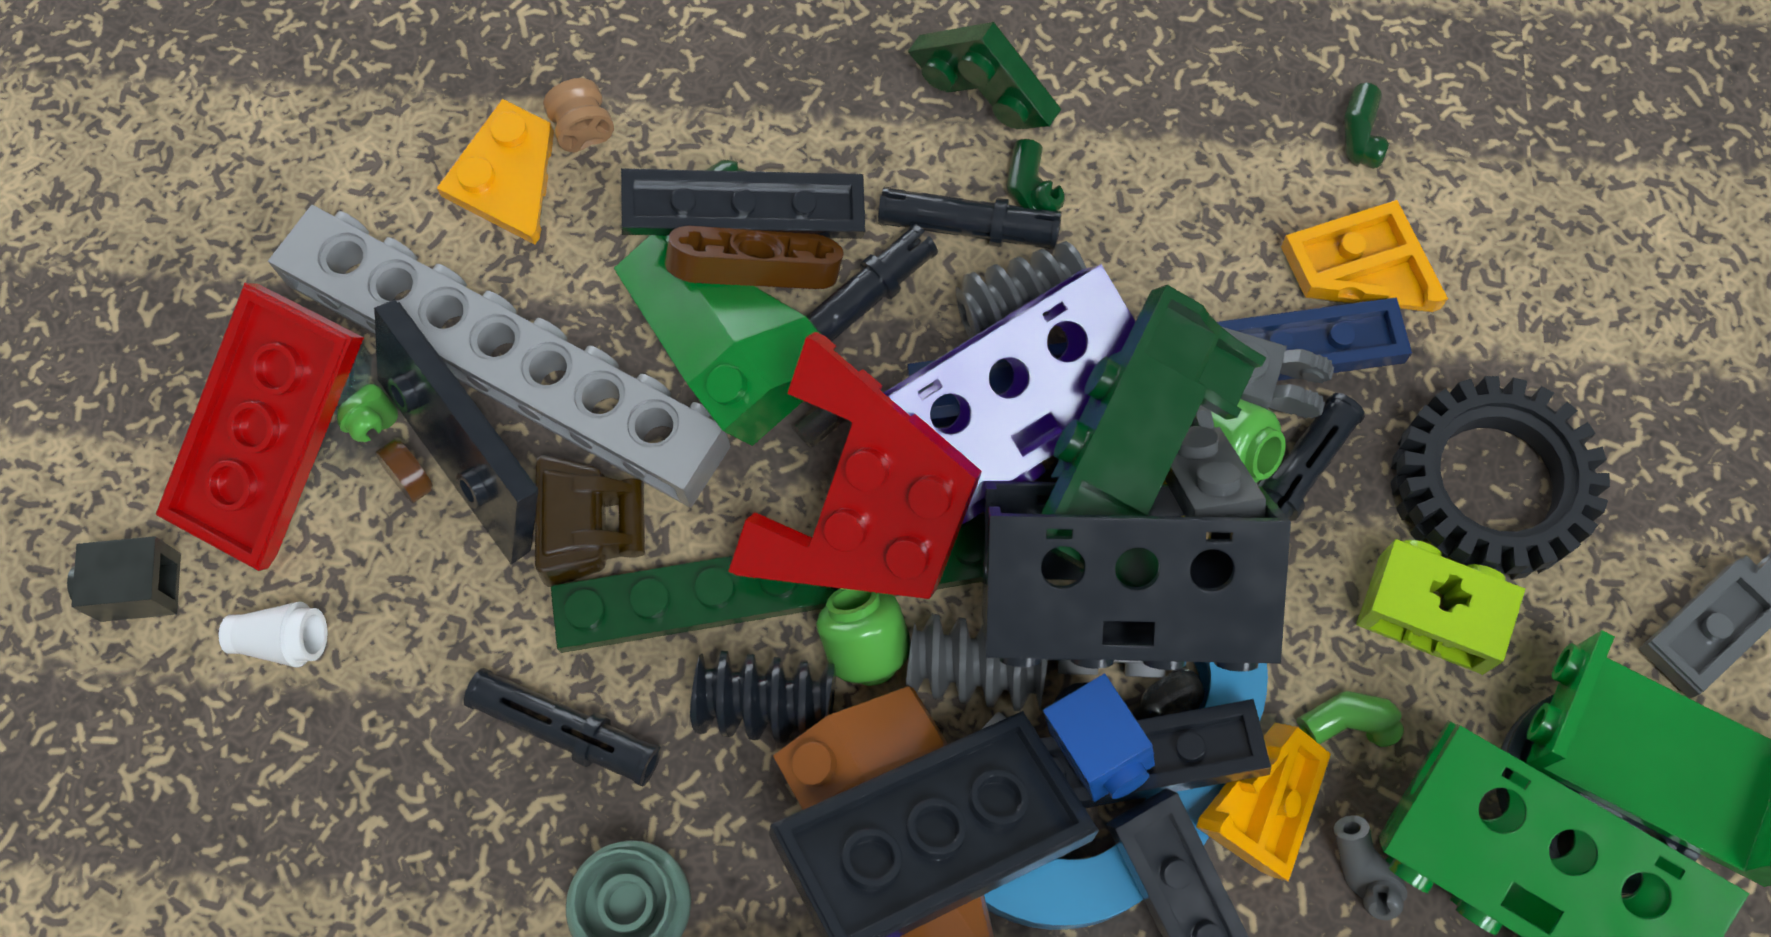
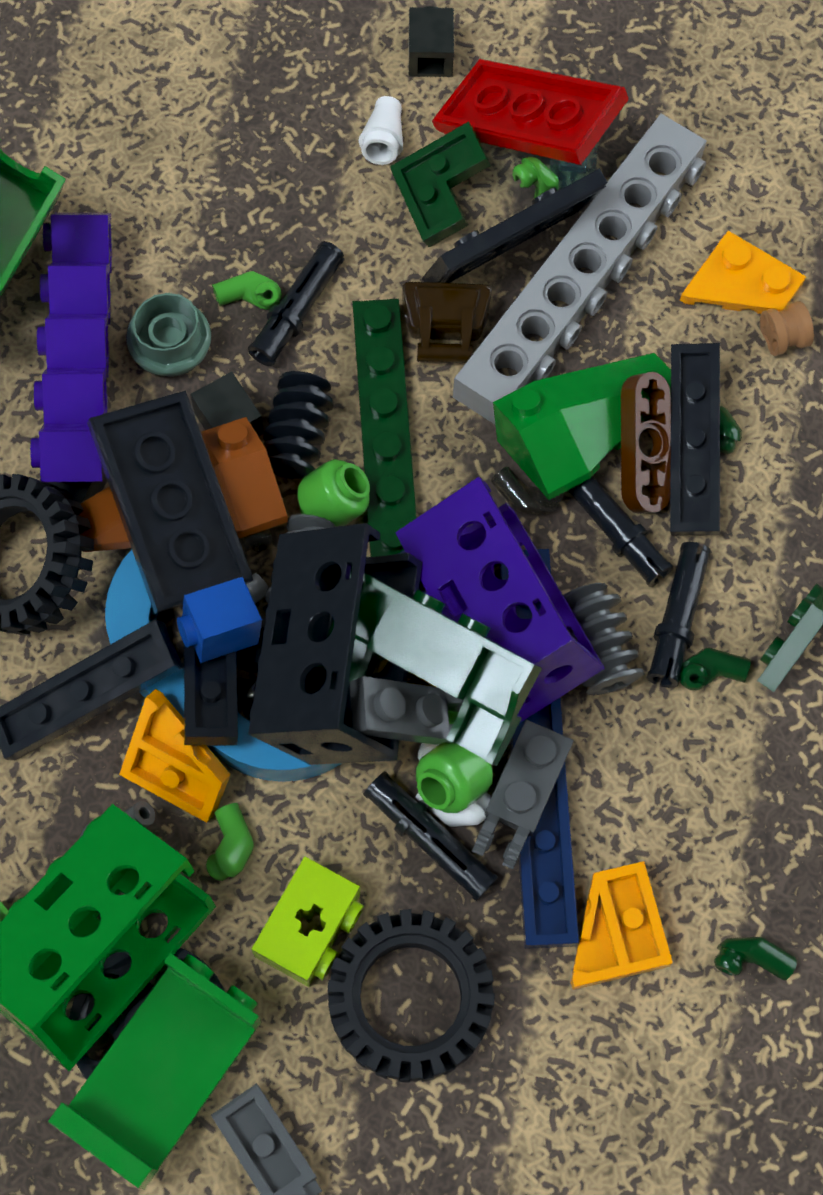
camera: 90 degrees right, 0 degrees up
(359, 561) = (431, 174): none -> dark green plate
(404, 470) = (494, 206): reddish brown tile -> none
(537, 797) = (249, 287): none -> bright green arm
(747, 799) = (225, 402): none -> pearl dark grey brick
(889, 502) = (420, 495): red wing -> none

